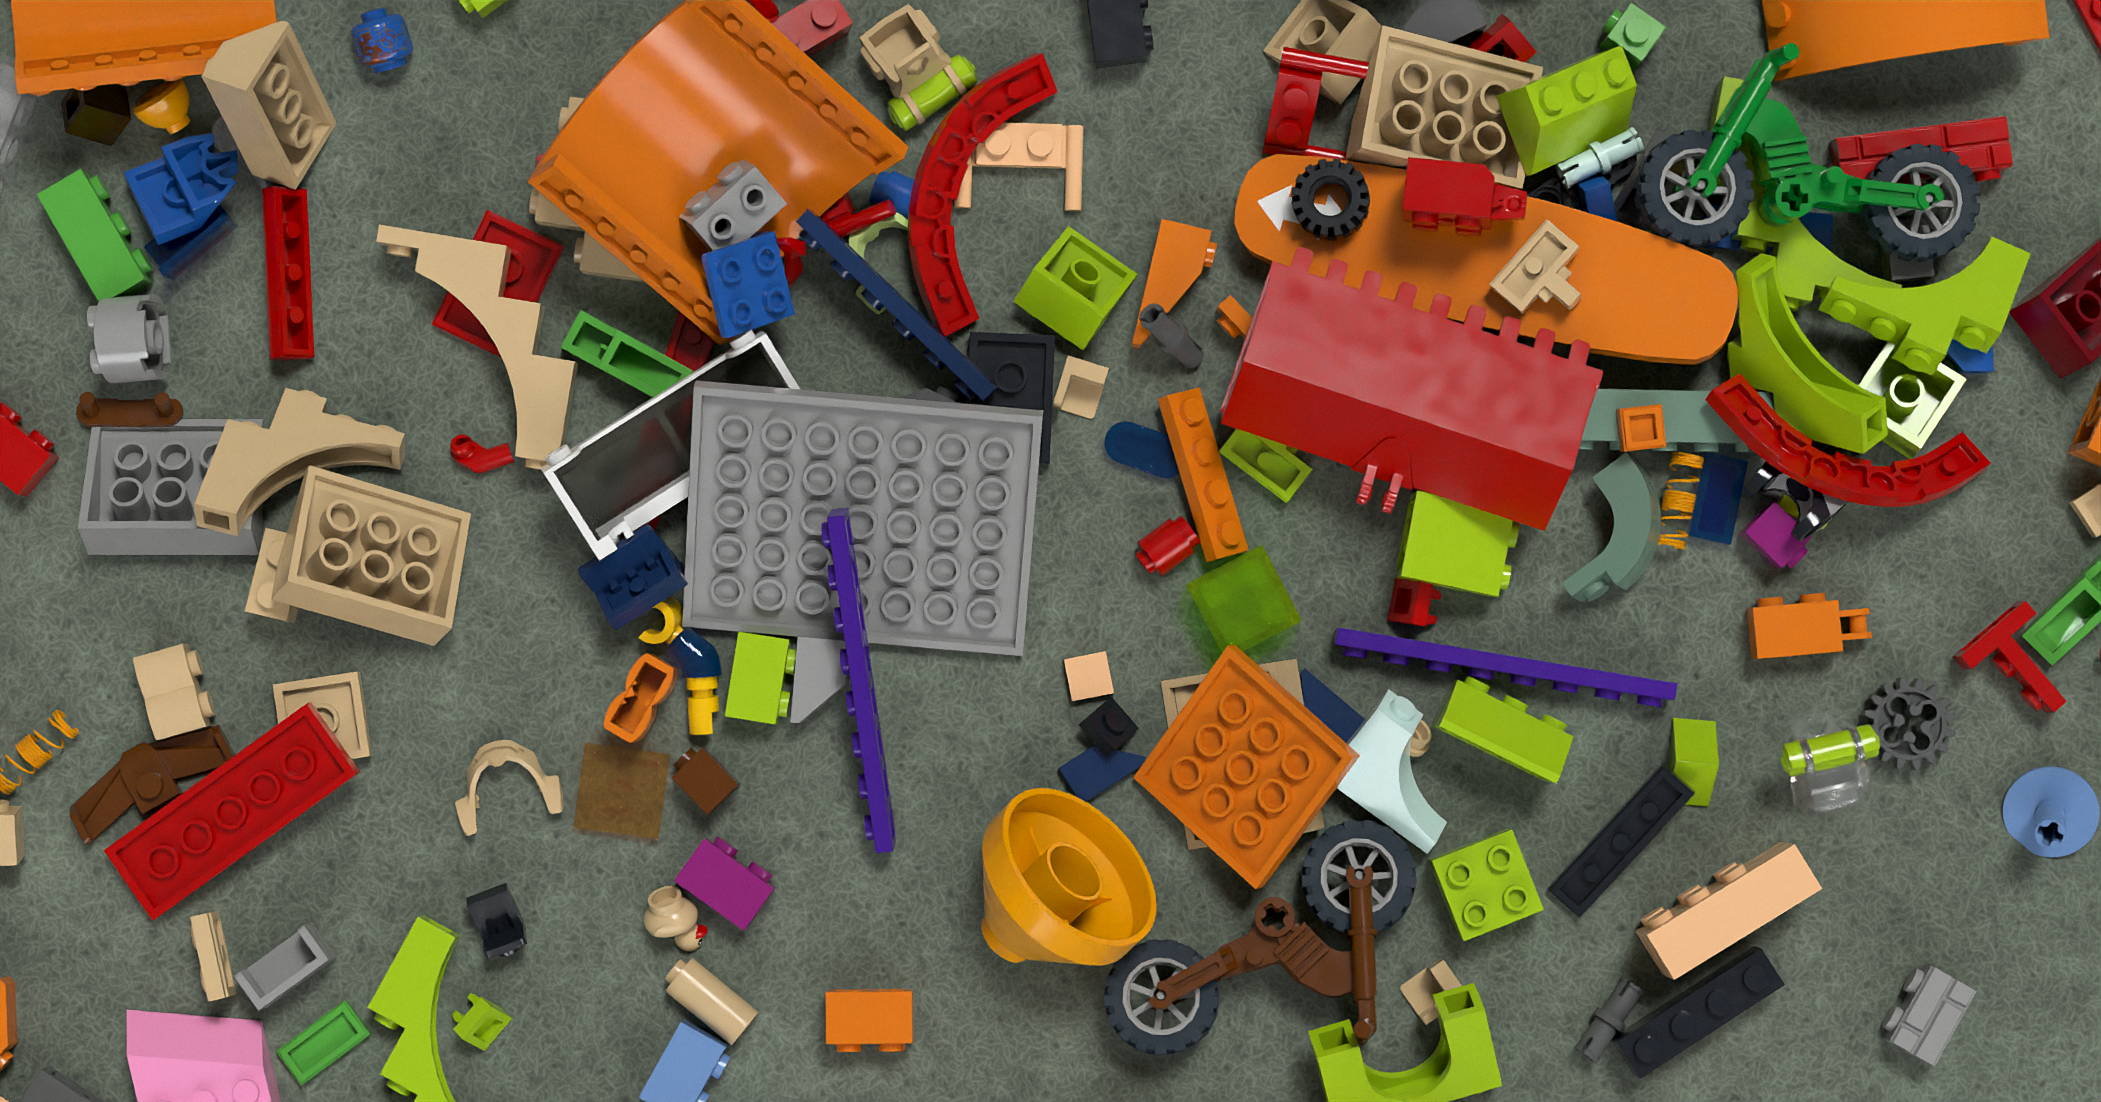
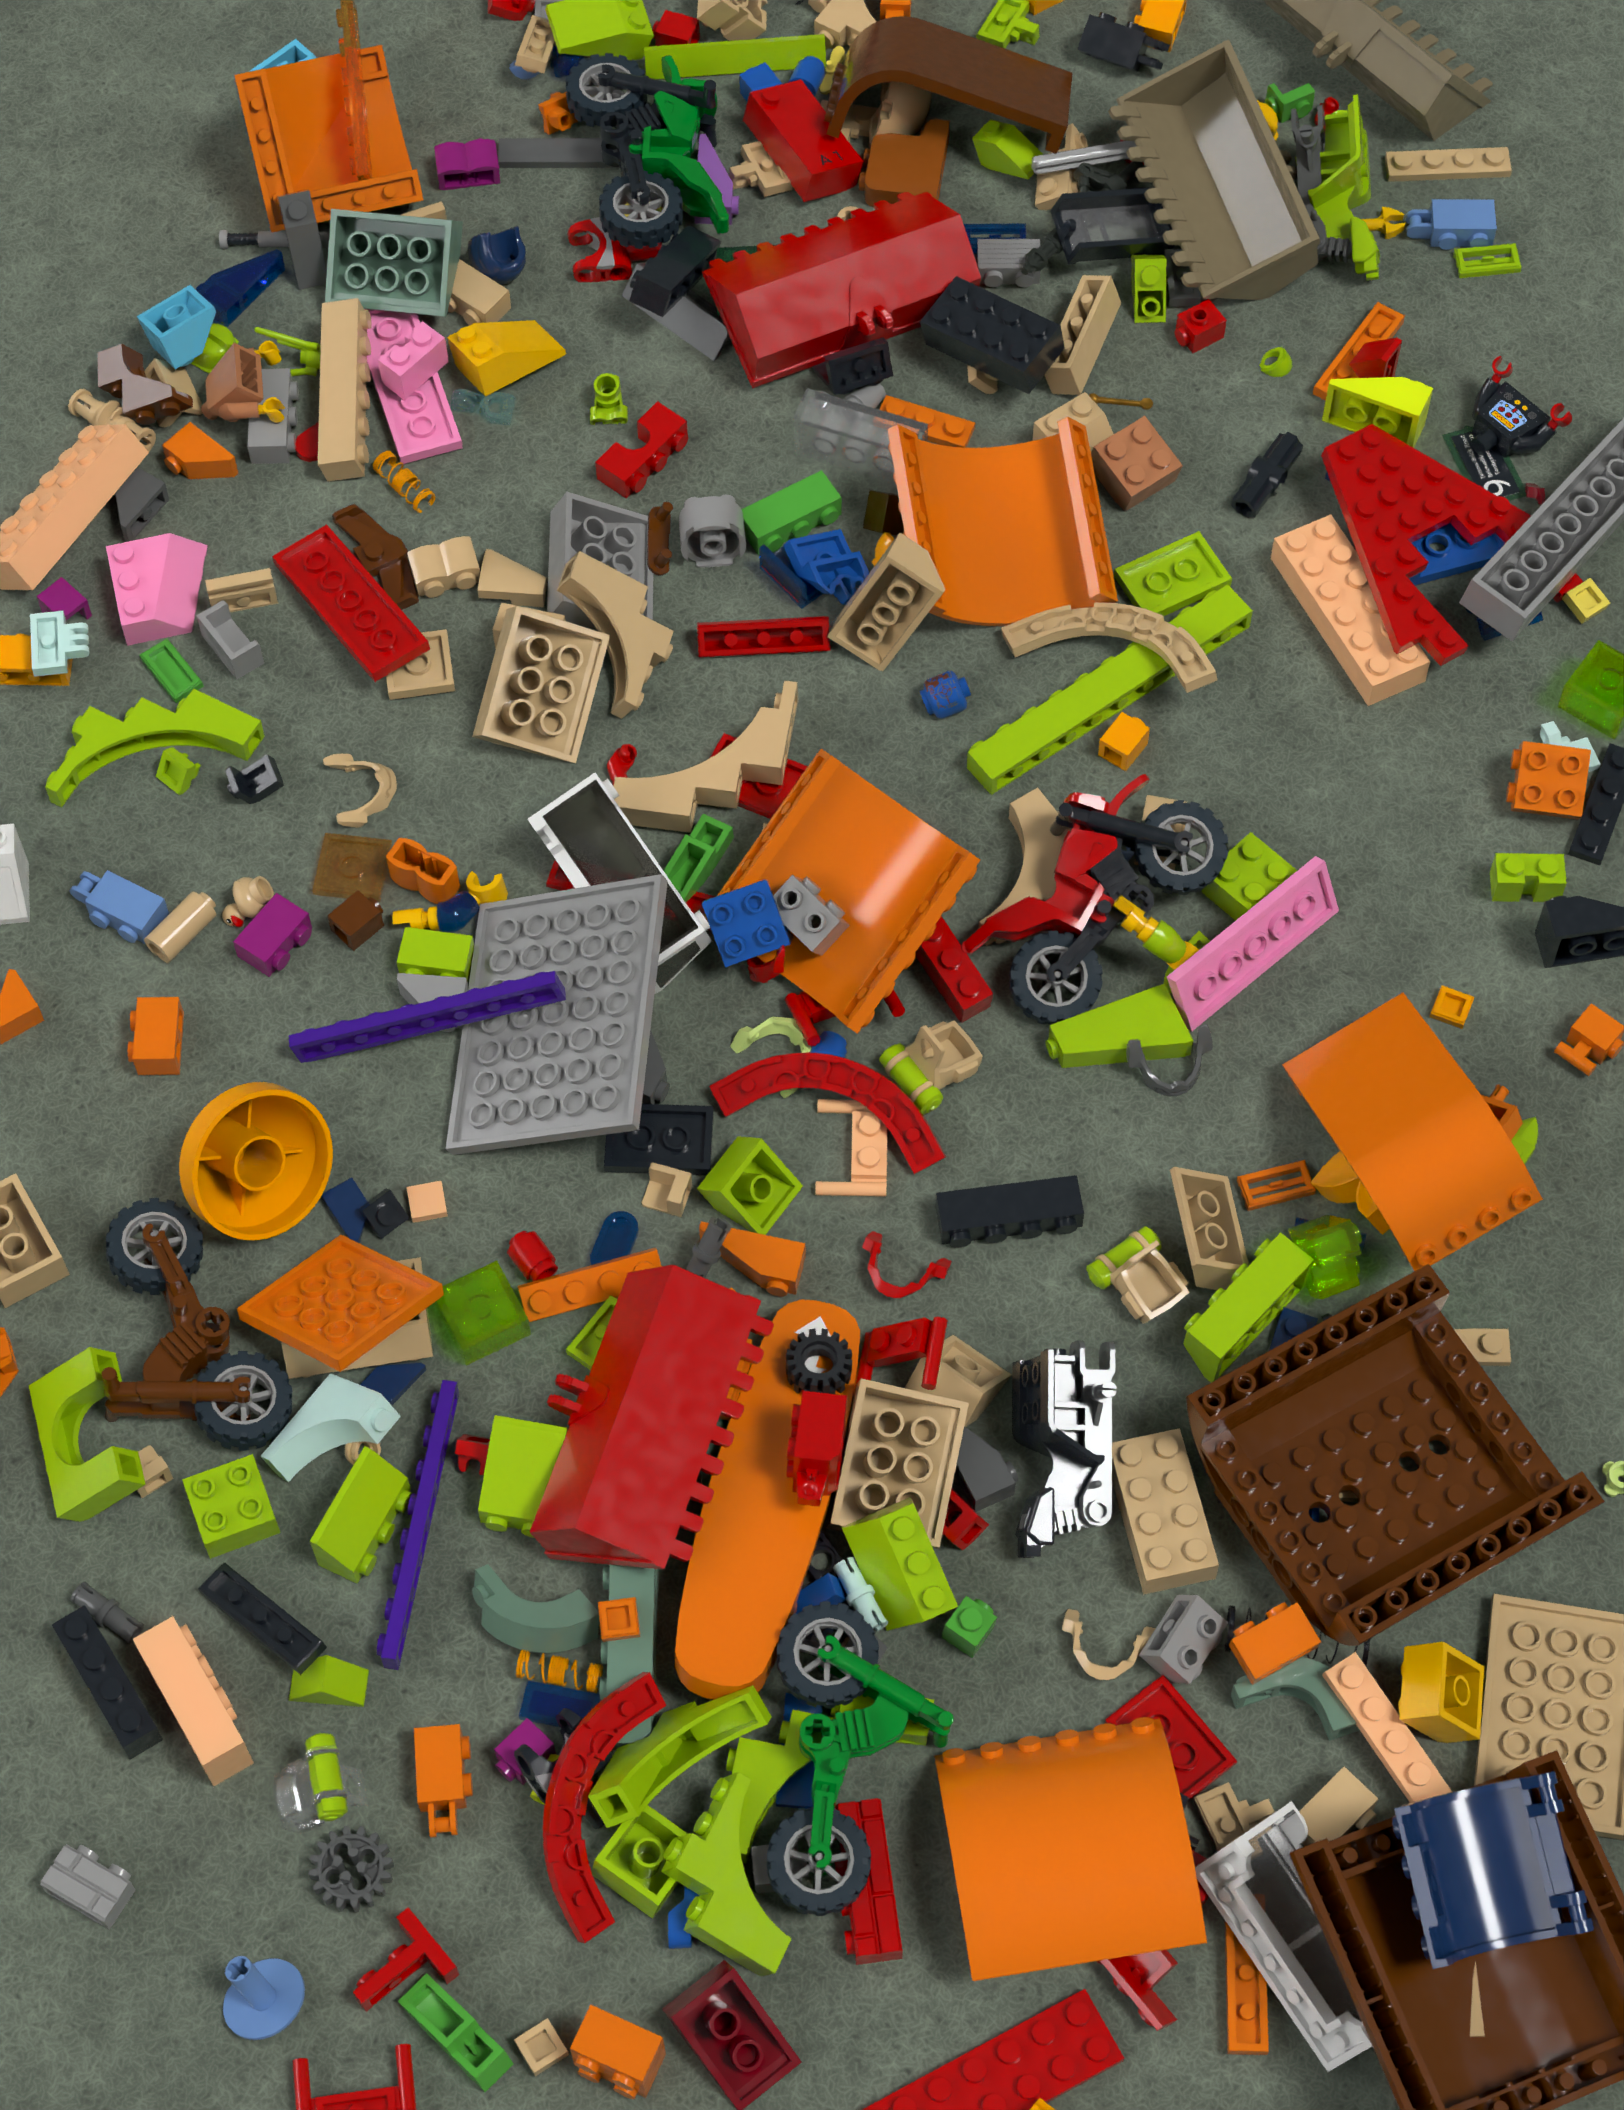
camera: 90 degrees right, 25 degrees down
(192, 604) = (510, 581): none -> tan slope
(634, 576) = (519, 859): dark blue bracket -> none
(908, 319) = (725, 1050): dark blue plate -> none
(1211, 121) = (873, 1245): none -> red helmet
(1539, 271) = (753, 1522): tan hinge -> none

